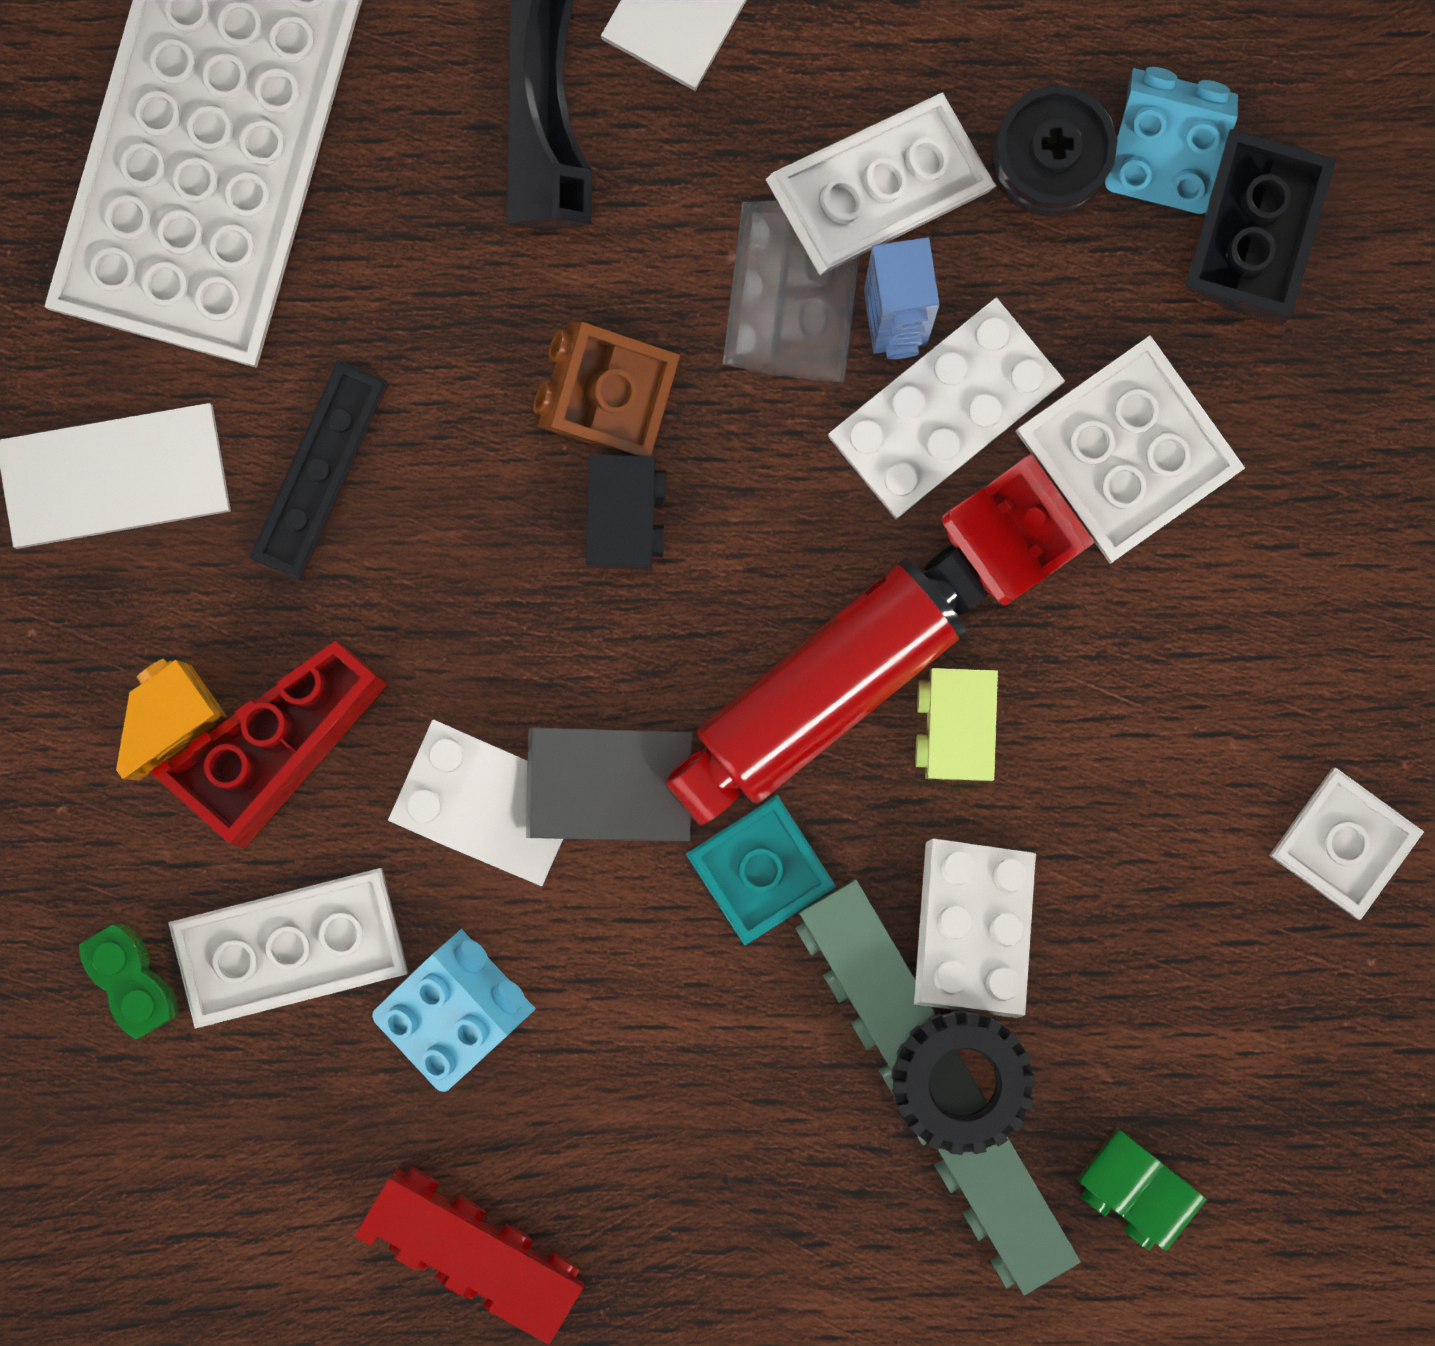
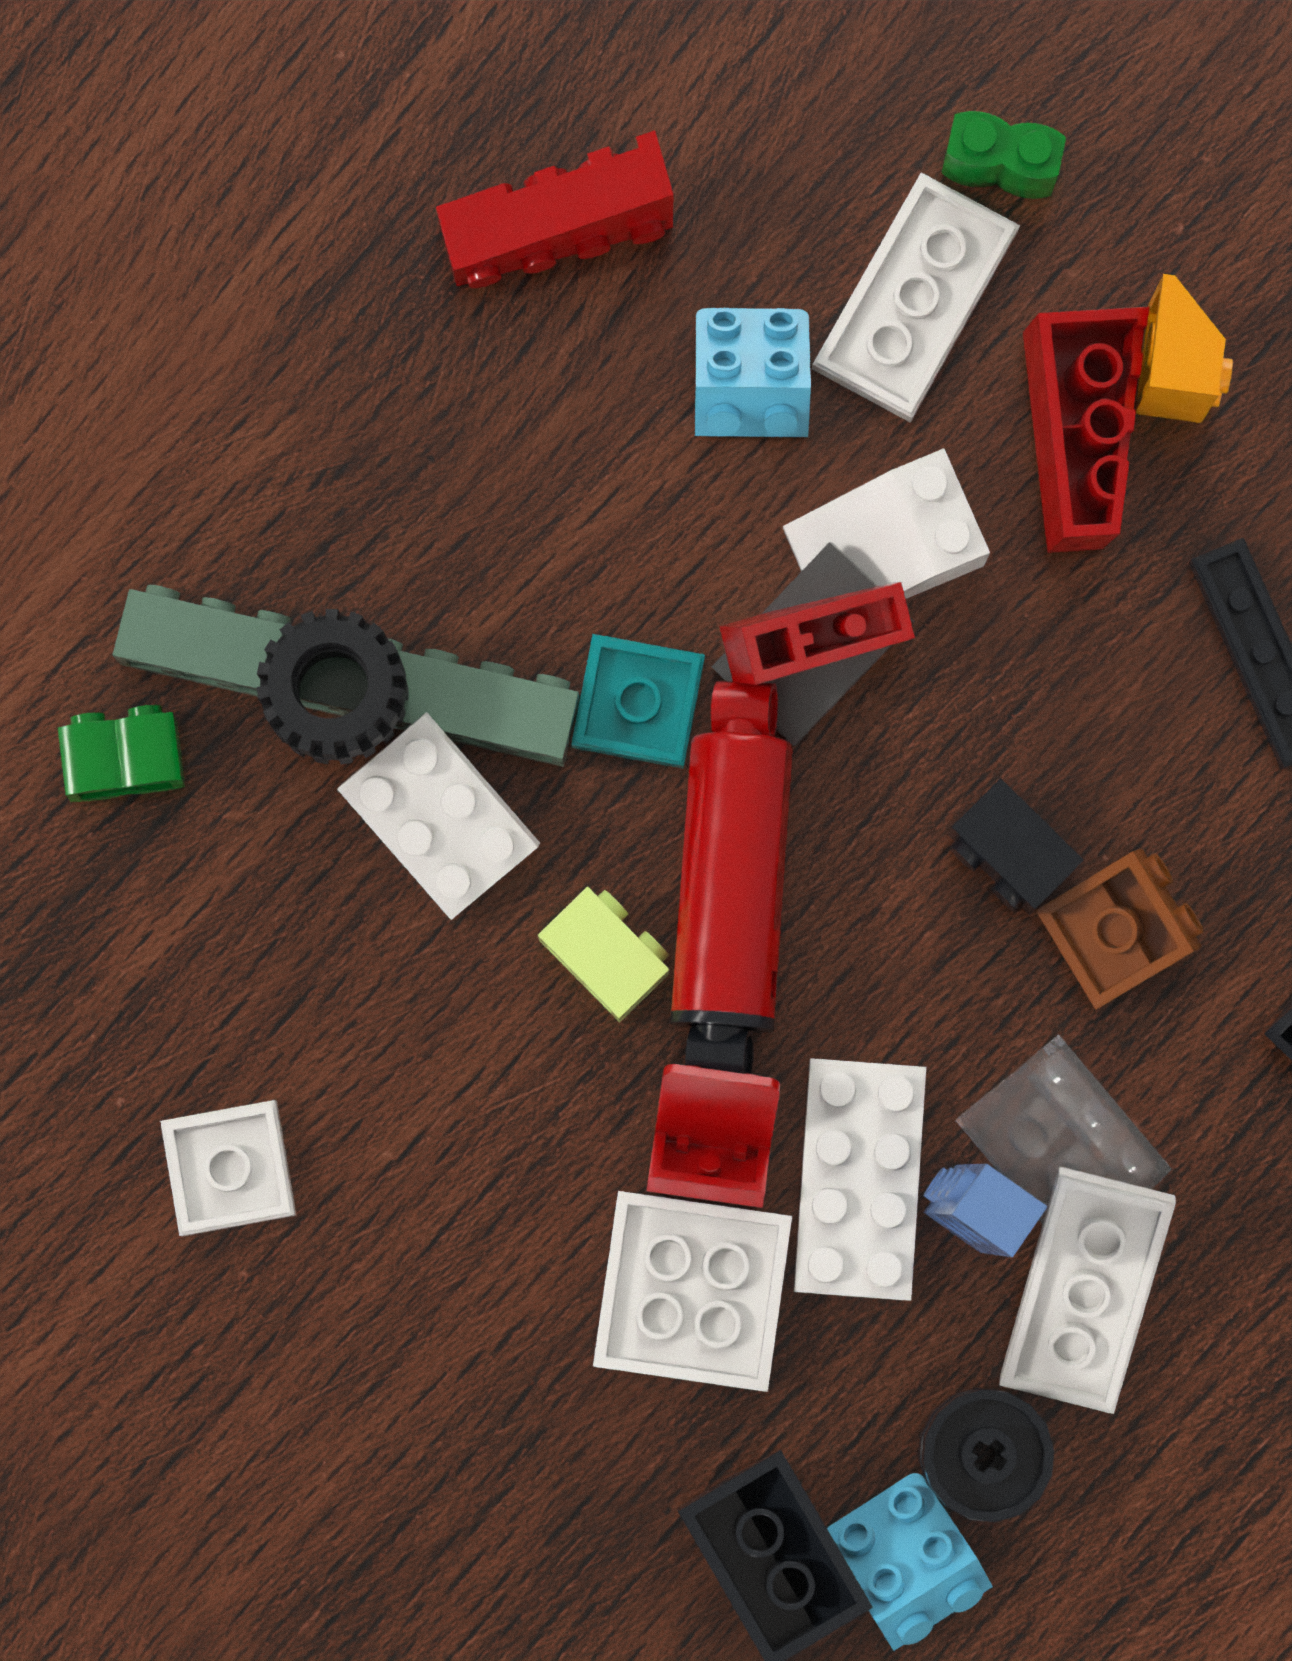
camera: 140 degrees right, 5 degrees down
(606, 785) = (816, 633): none -> red slope

